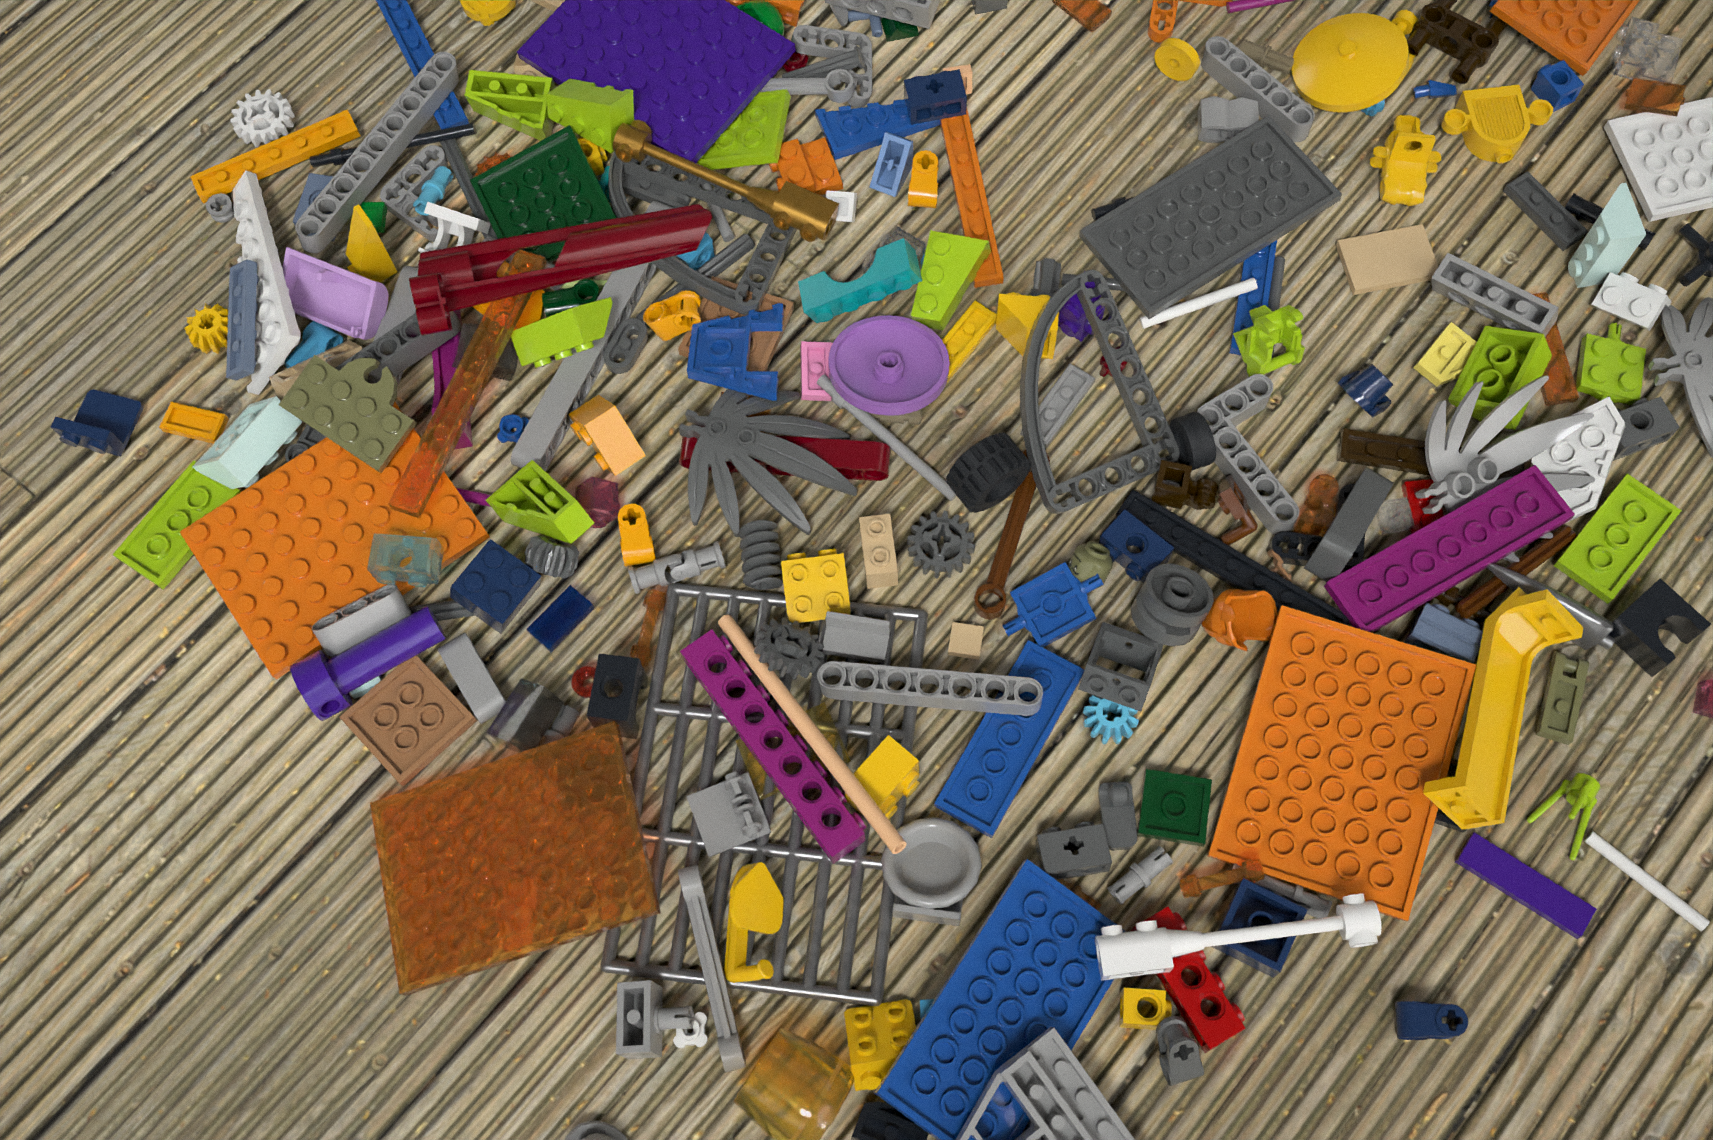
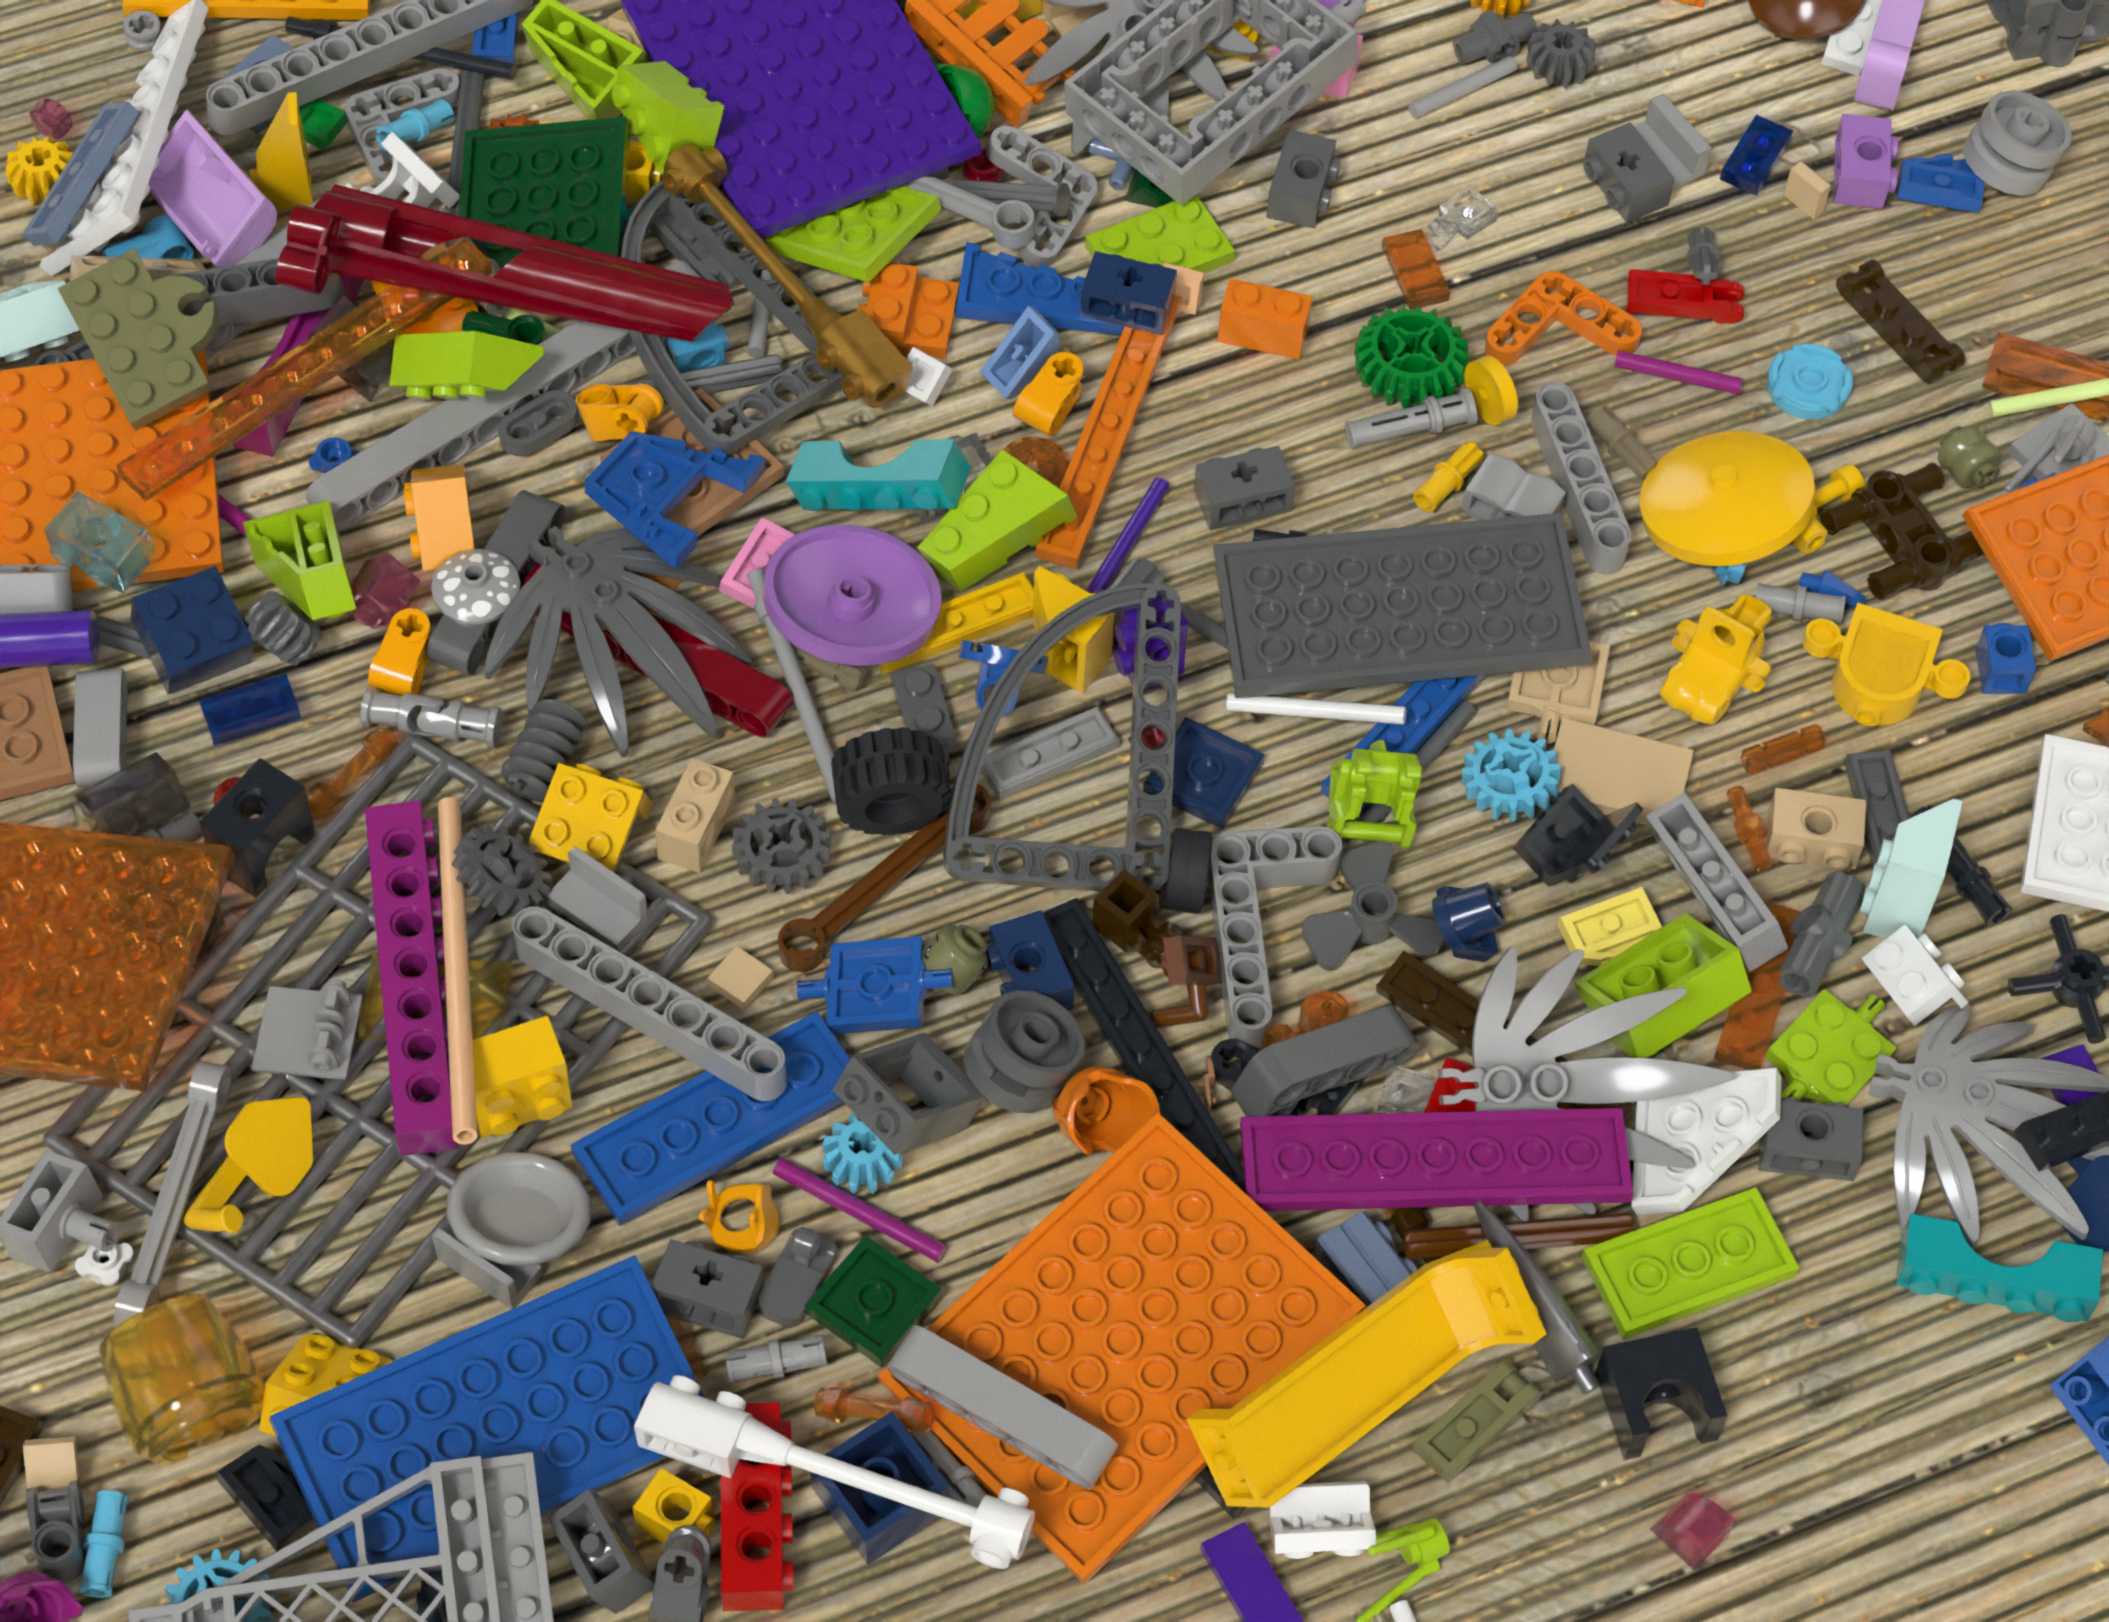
camera: 20 degrees right, 10 degrees down
(197, 292) = (51, 118): none -> clear pink tile
(659, 482) = (479, 599): none -> light grey dish
(662, 461) = (527, 519): none -> dark grey beam
(927, 55) = (1167, 234): none -> lime plate
(937, 220) = (1043, 453): none -> clear orange gear
(968, 414) = (923, 704): none -> dark grey hinge
(1000, 367) = (993, 664): none -> blue tile
(1019, 76) = (1264, 318): none -> orange brick
(1020, 249) = (1129, 535): none -> dark purple bar
(1070, 186) = (1244, 487): none -> dark grey brick
(1079, 799) = (763, 1219): none -> light orange piece
(1119, 1060) = (601, 1551): none -> dark grey brick
(1128, 752) = (860, 1210): none -> magenta bar
(1131, 67) = (1410, 344): none -> green gear
(1148, 91) = (1430, 416): none -> light grey pin
(1165, 370) = (1208, 773): none -> dark blue tile
(1181, 124) = (1448, 477): none -> yellow axle
(1291, 391) = (1335, 933): none -> dark grey piece
(1302, 839) = (1002, 1407): none -> light grey beam
(1328, 228) = (1560, 692): none -> tan plate
(1335, 280) = (1510, 772): none -> medium azure gear
(1398, 313) = (1574, 837): none -> black bracket
(1425, 106) = (1802, 603): none -> light grey pin
(1468, 199) = (1783, 749): none -> clear orange axle
(1481, 256) = (1749, 828): none -> clear orange bar
(1520, 239) = (1835, 817): none -> tan brick
(1527, 810) = (1323, 1519): none -> white bracket
(1565, 295) = (1821, 934): none -> dark grey piece

